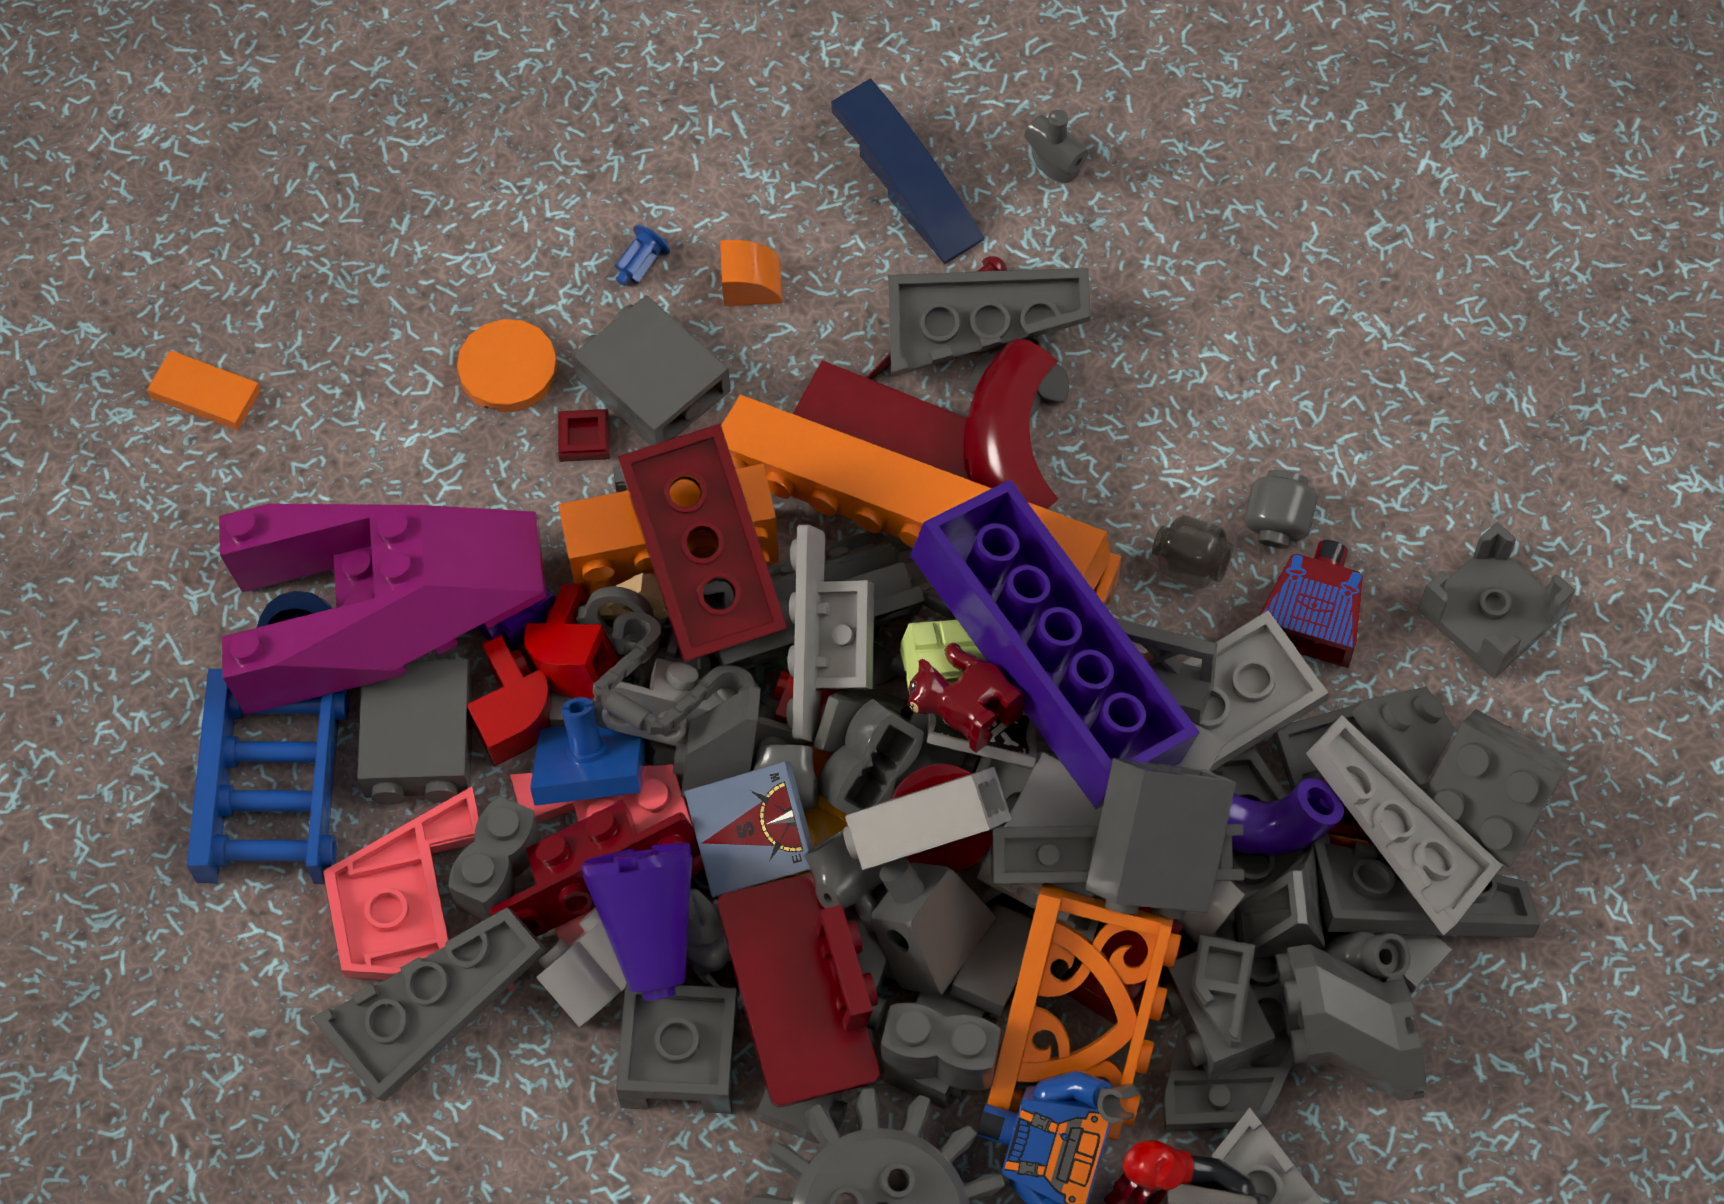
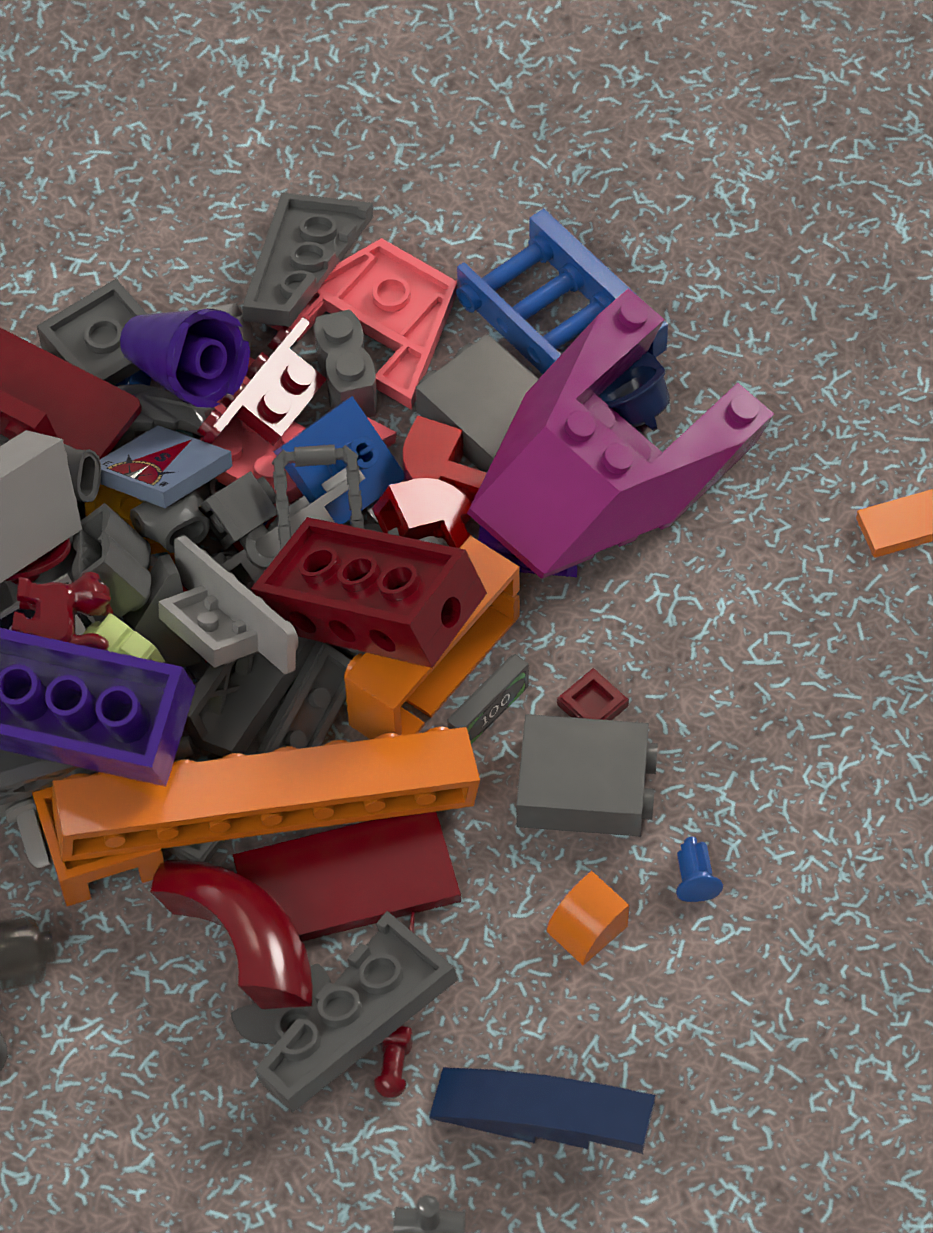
camera: 140 degrees right, 5 degrees down
(507, 365) = (707, 708): orange tile -> none

